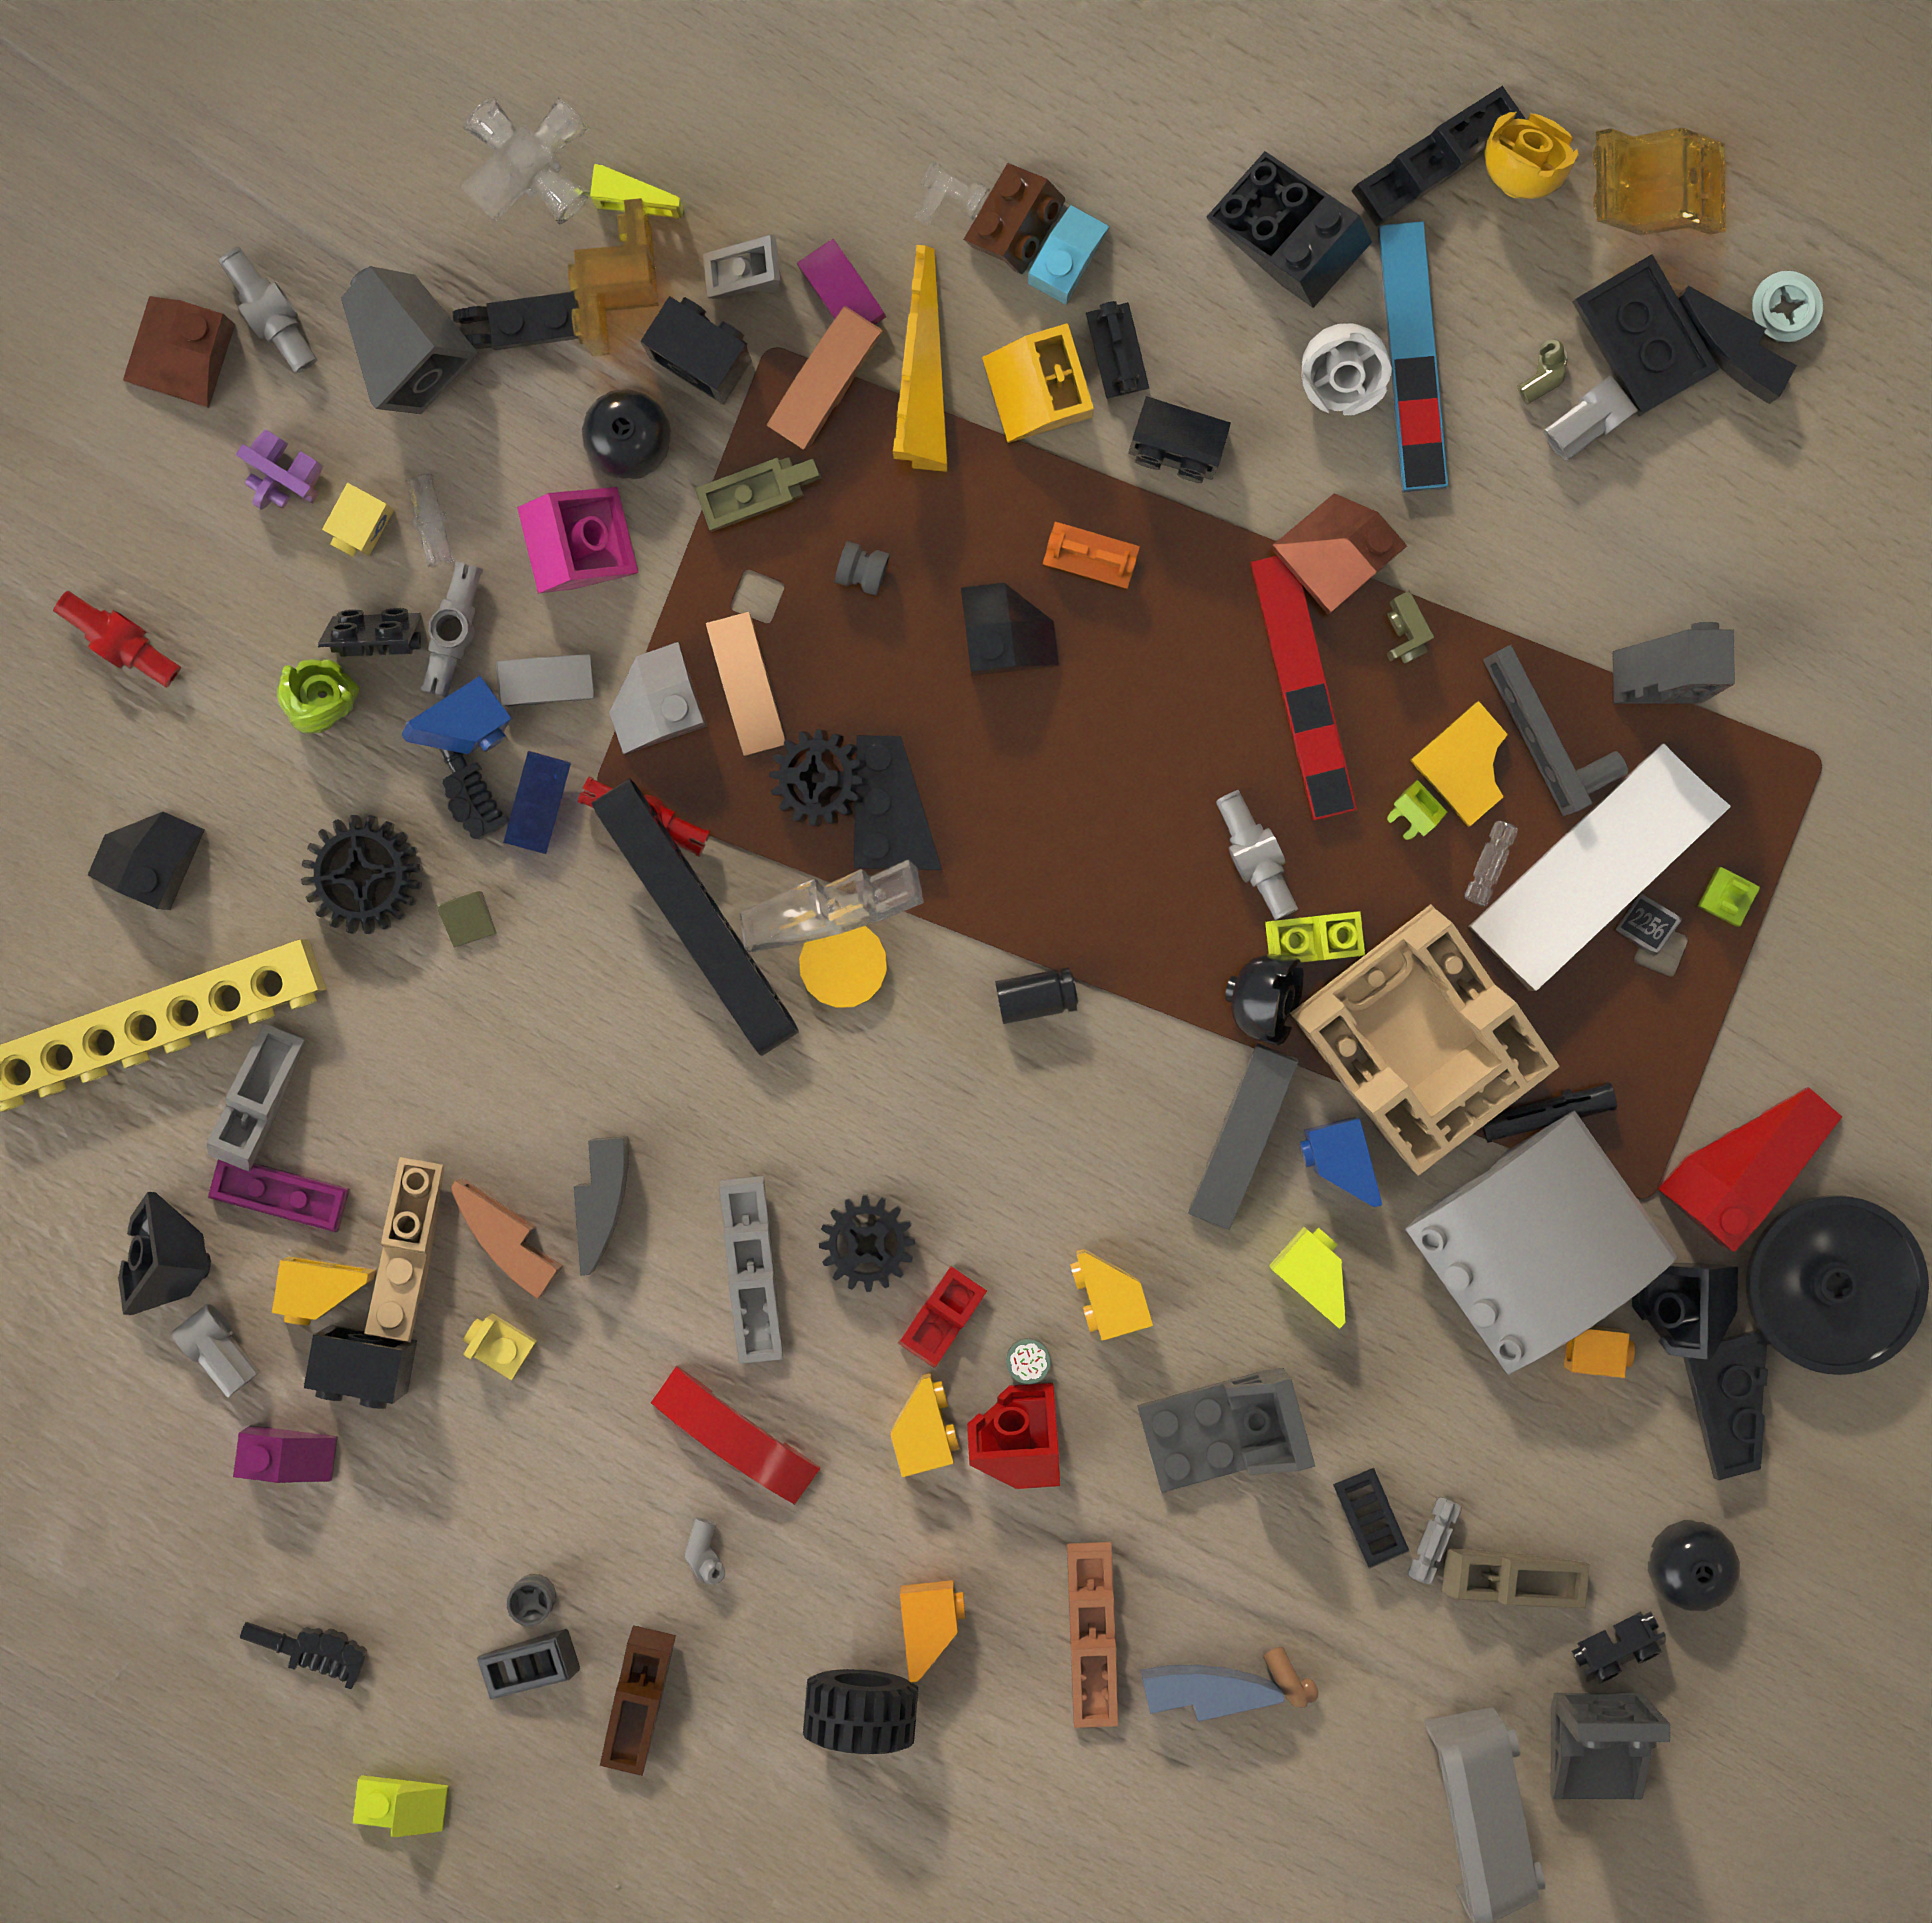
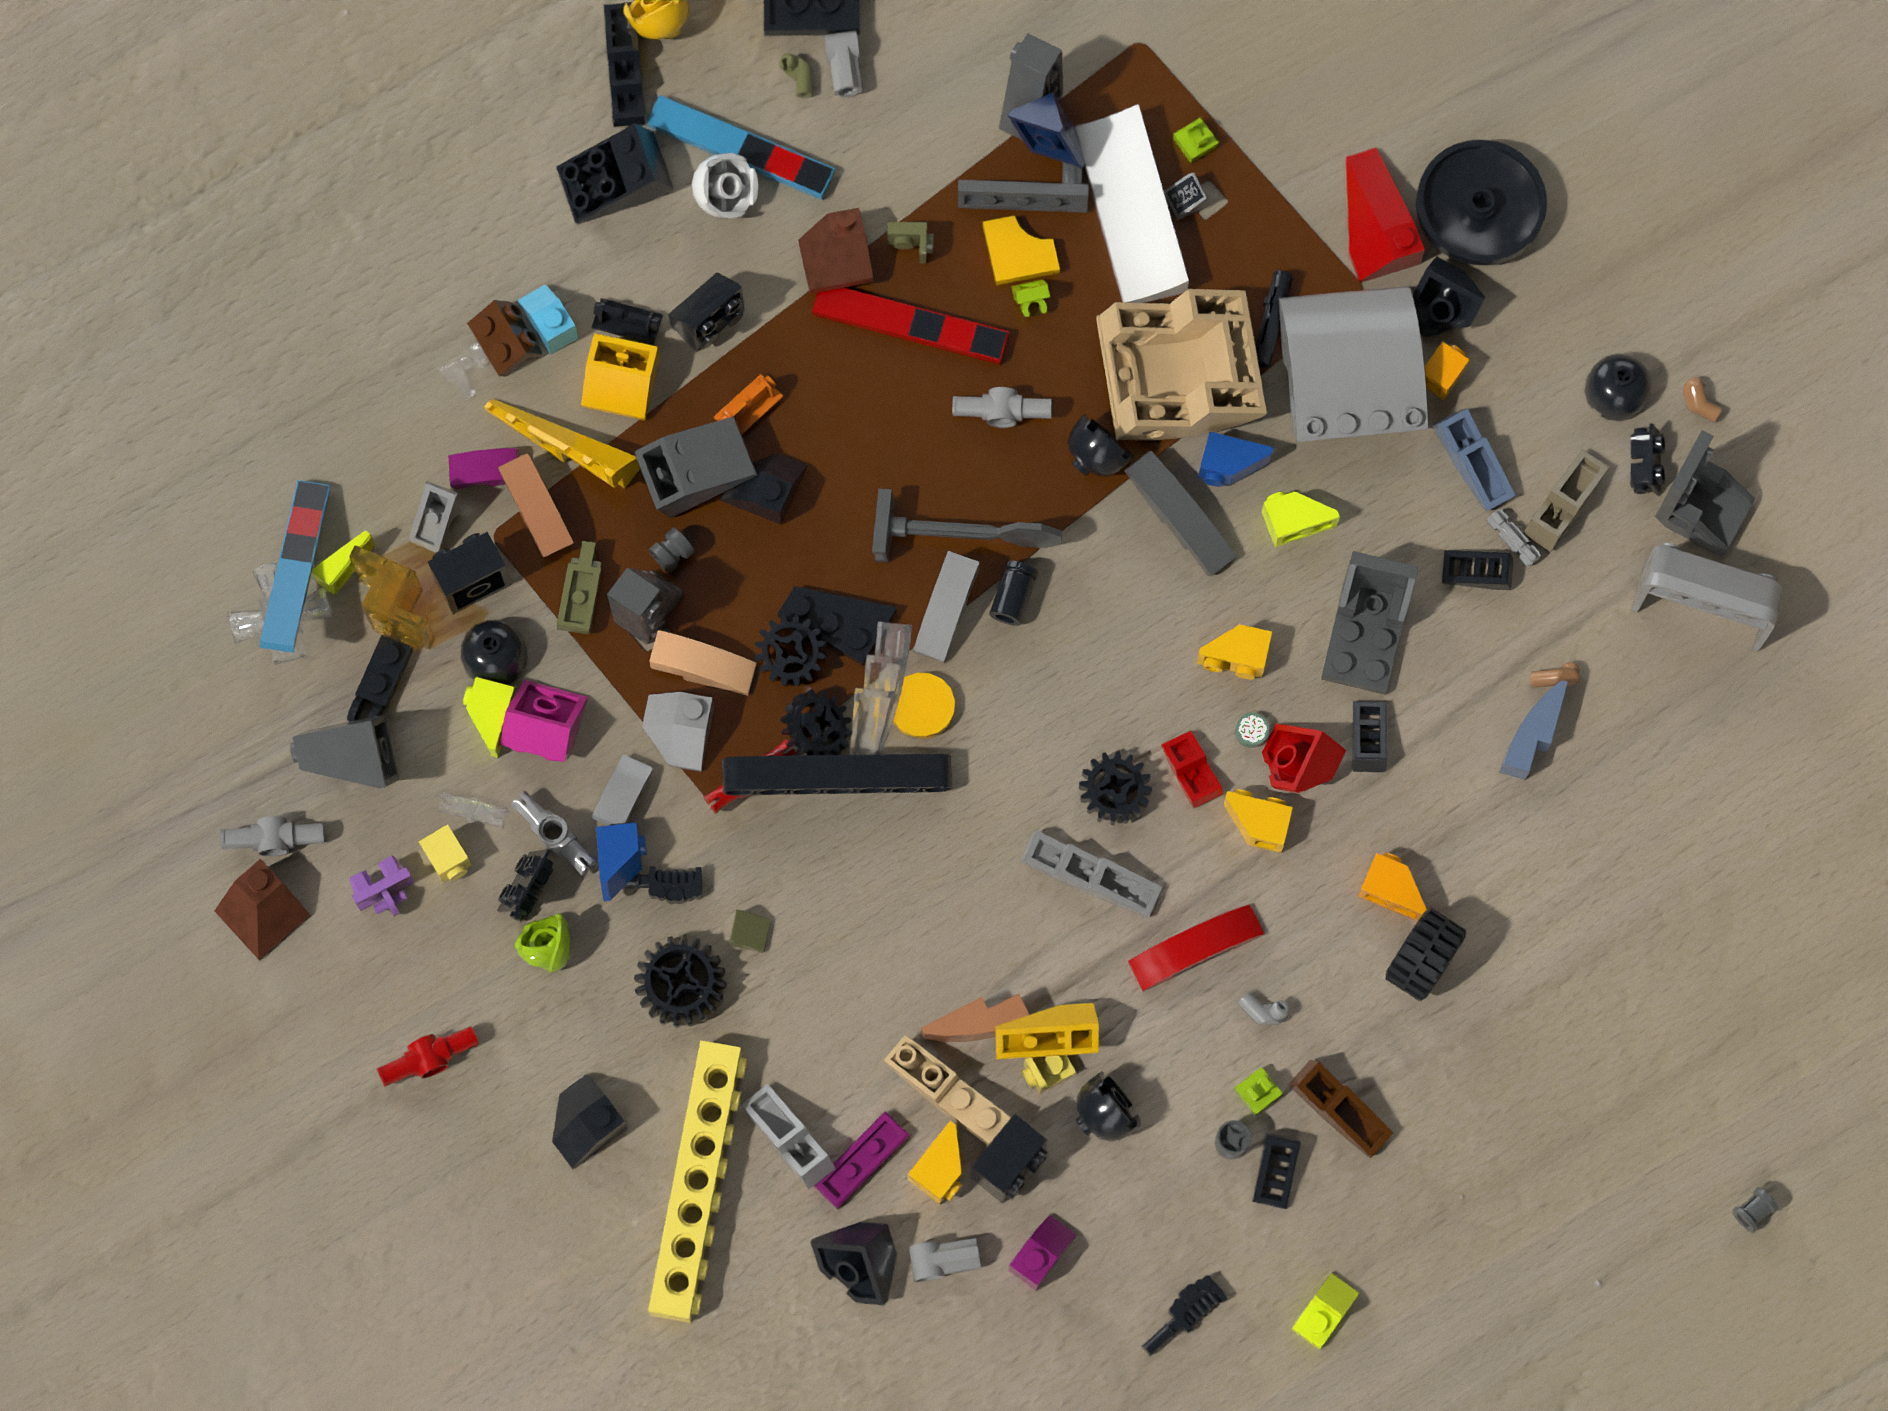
camera: 60 degrees left, 15 degrees down
(482, 1439) = (1105, 1109): none -> black cylinder
(535, 1333) = (1050, 1032): none -> yellow slope
(537, 802) = (701, 840): clear blue slope -> none
(550, 467) = (486, 707): none -> neon yellow slope
(587, 142) = (295, 566): none -> dark azure tile
(600, 1201) = (988, 944): dark grey slope -> none
(607, 1596) = (1258, 1091): none -> lime tile
(728, 865) = (817, 725): none -> black gear
(774, 574) = (643, 602): none -> dark grey wedge
(973, 927) = (946, 606): none -> light grey slope
(975, 537) = (695, 465): none -> dark grey slope
(1034, 805) = (888, 525): none -> dark grey piece
(1063, 1517) = (1369, 757): none -> black slope
(1092, 1634) = (1458, 787): nougat slope -> none
(1317, 937) = (1077, 399): neon yellow slope -> none
(1491, 863) = (1091, 270): clear axle -> none
(1506, 1443) = (1474, 459): none -> sand blue slope
(1634, 719) = (1048, 130): none -> dark blue slope
(1729, 1667) = (1696, 400): none -> medium nougat arm
(1730, 1403) = (1522, 309): black wing -> none

